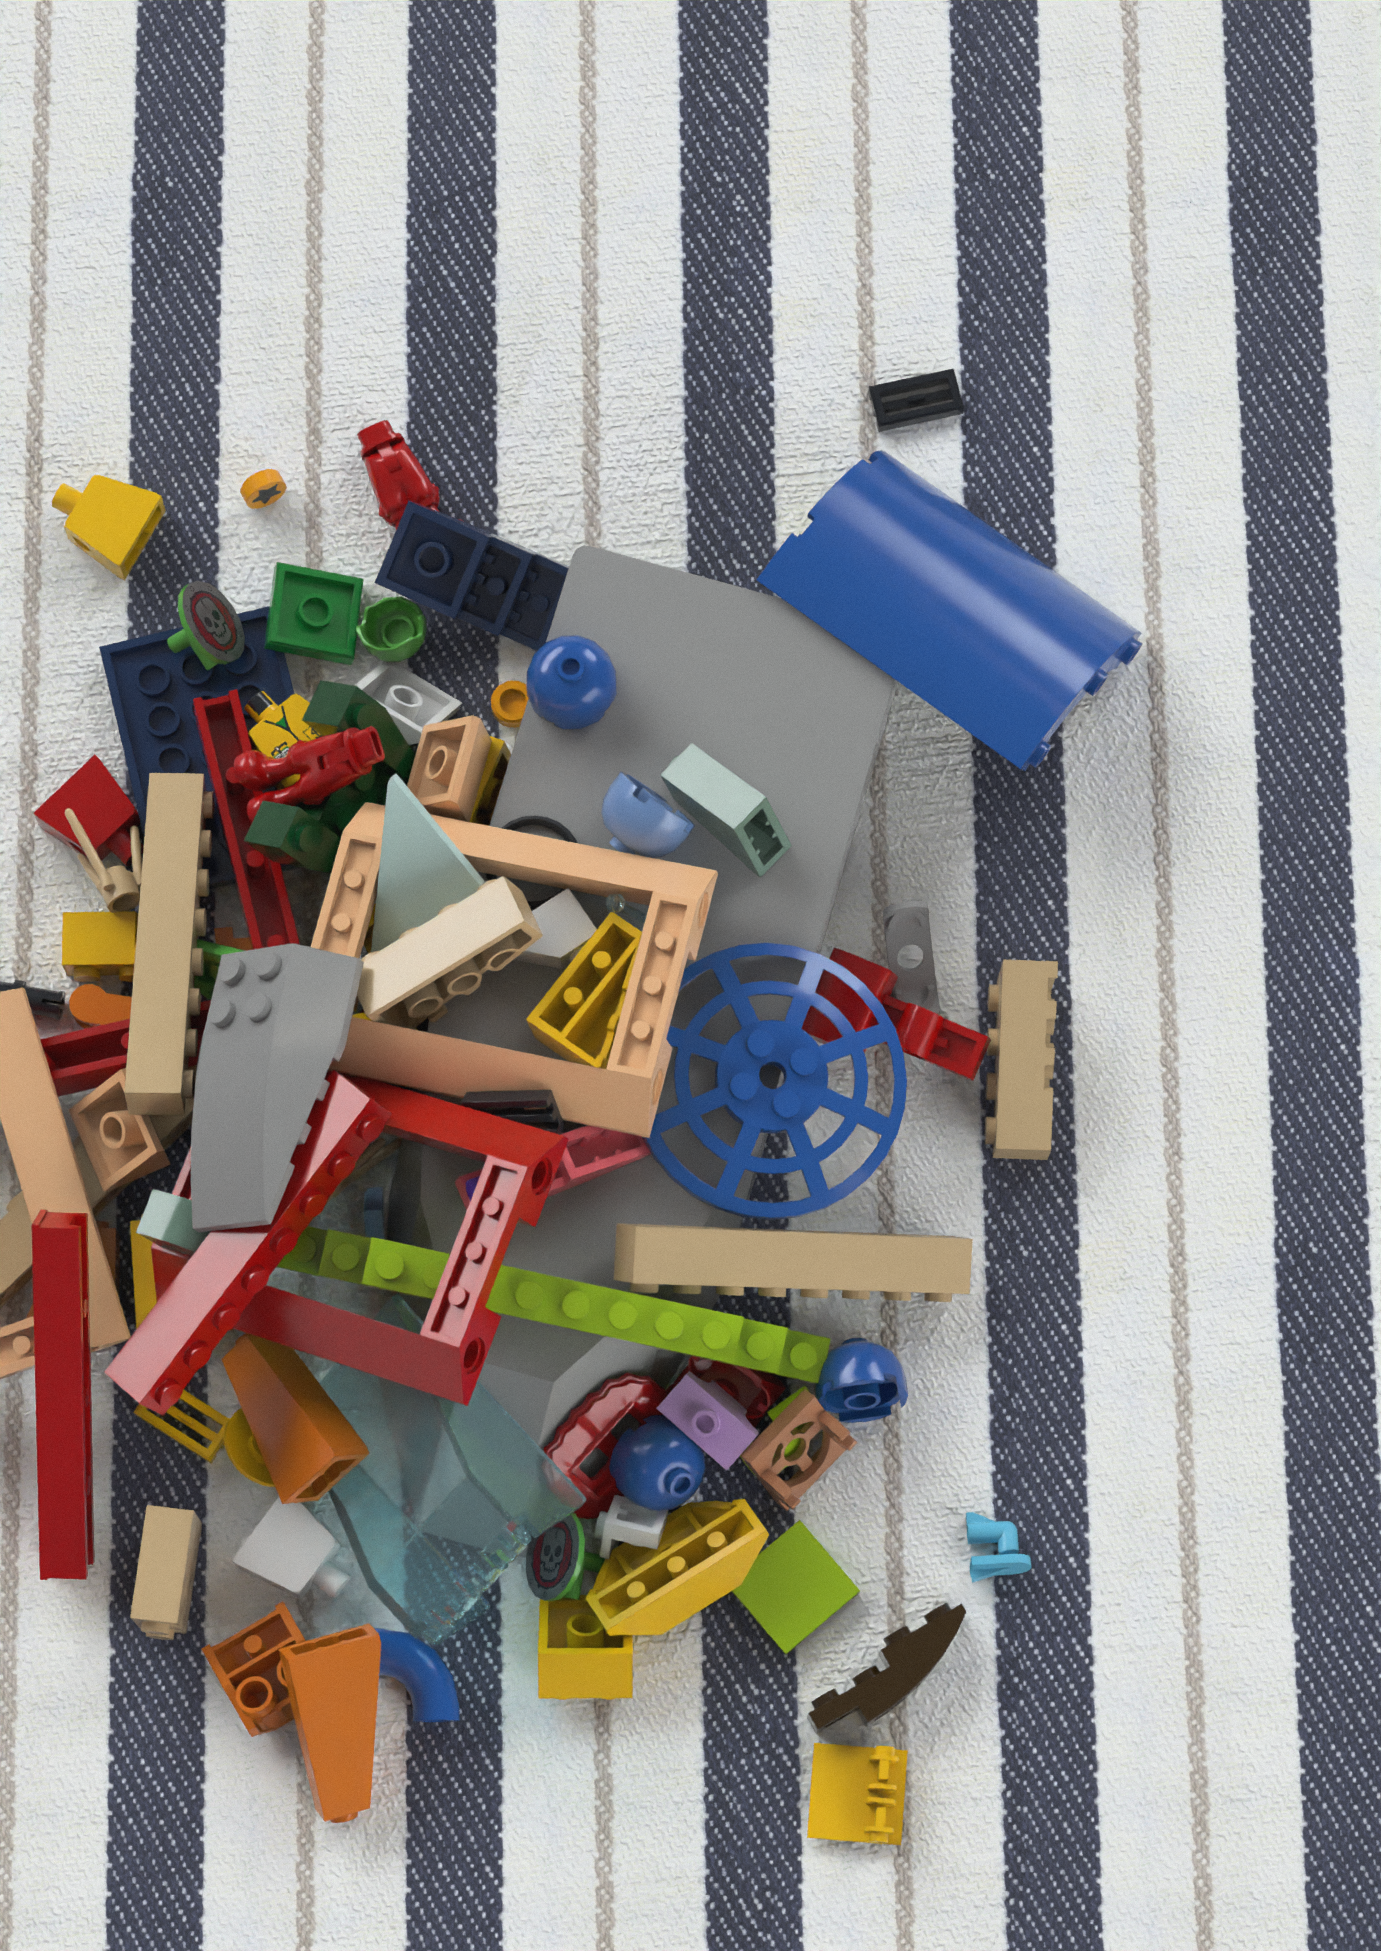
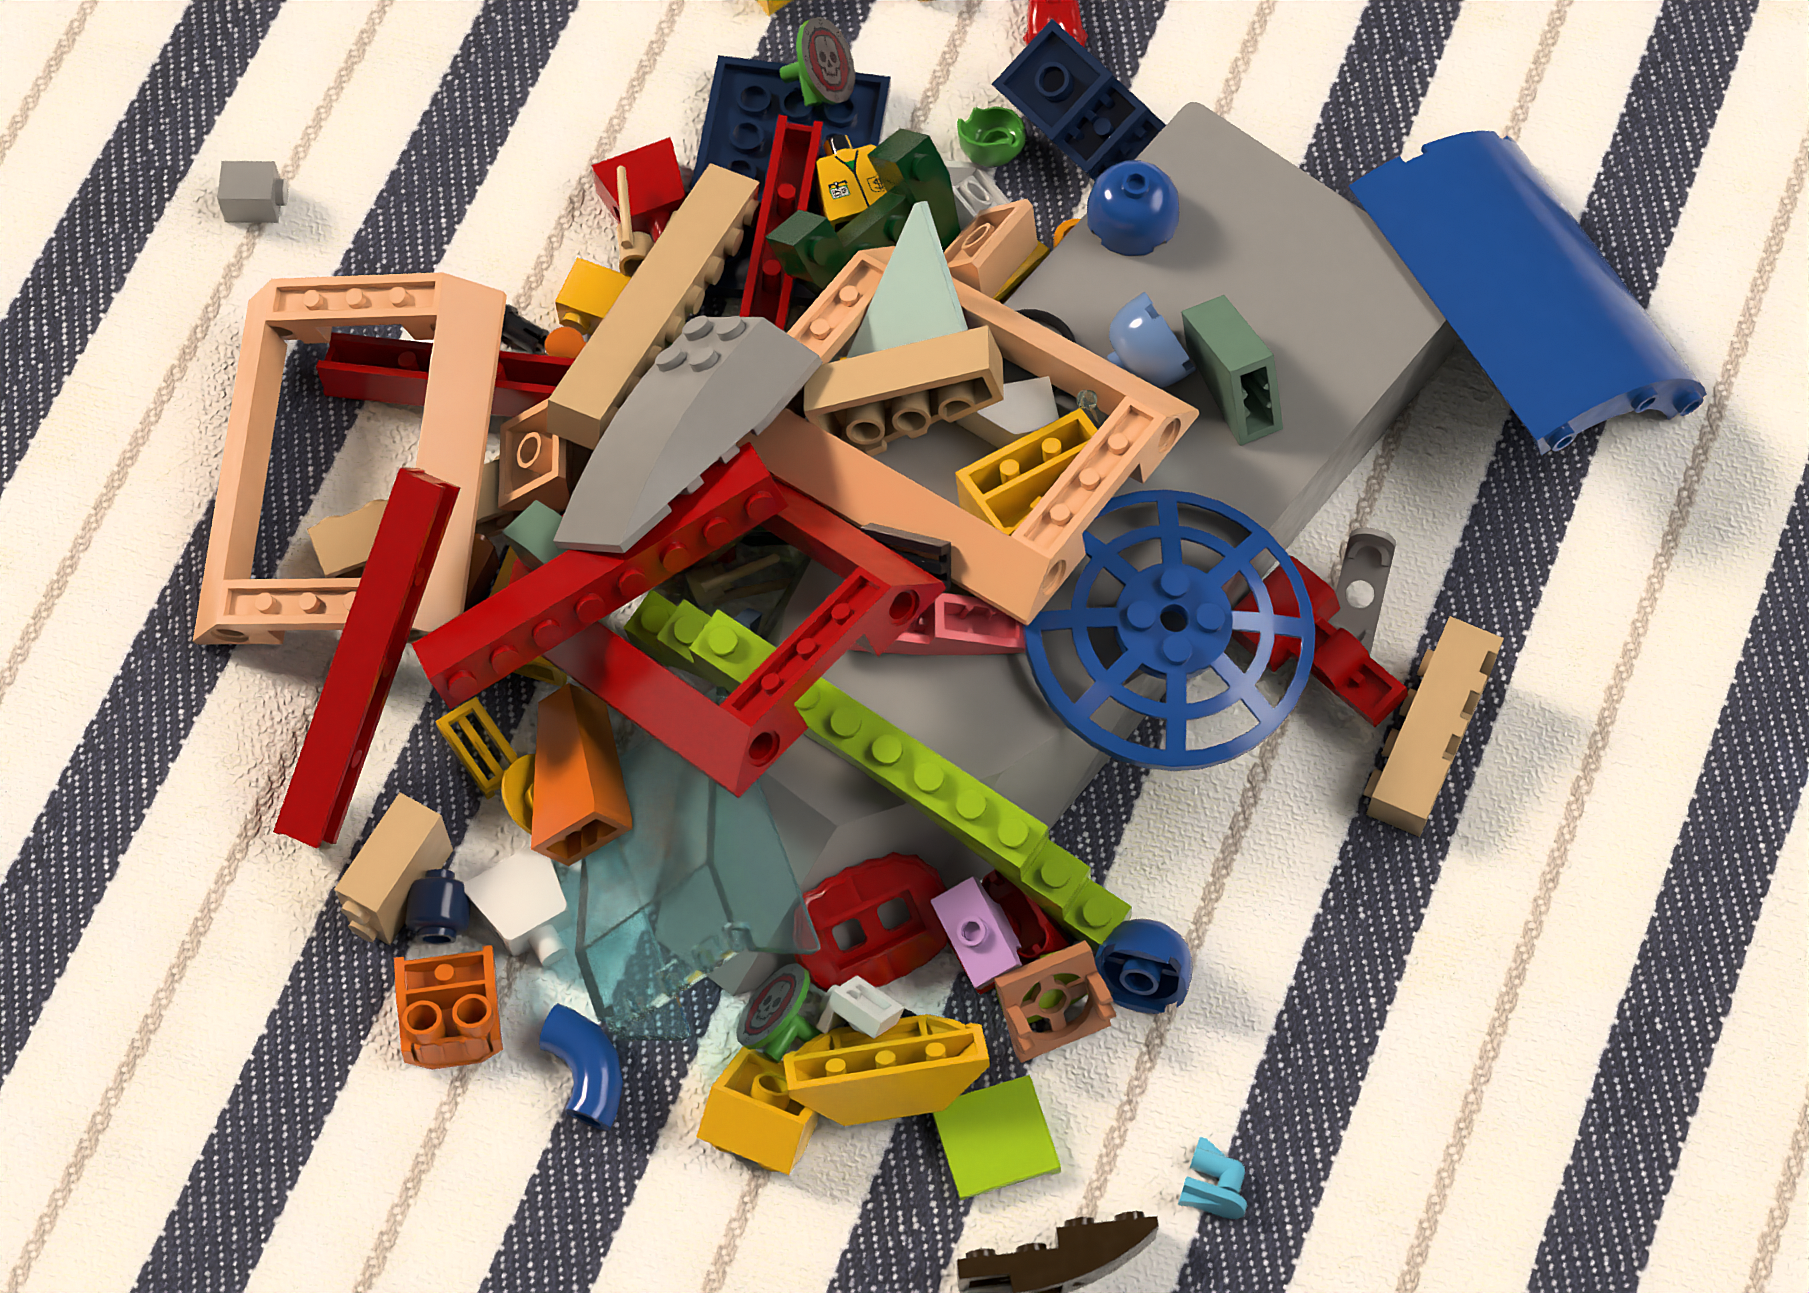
camera: 25 degrees right, 10 degrees down
(219, 1586) = (437, 908): none -> dark blue head
(314, 613) = (925, 95): green tile -> none
(323, 767) = (863, 196): red piece -> none
(335, 1712) = (491, 1059): orange slope -> none
(657, 1465) = (910, 960): blue cylinder -> none
(791, 1259) = (1124, 809): tan brick -> none
(919, 415) = (1567, 126): black tile -> none

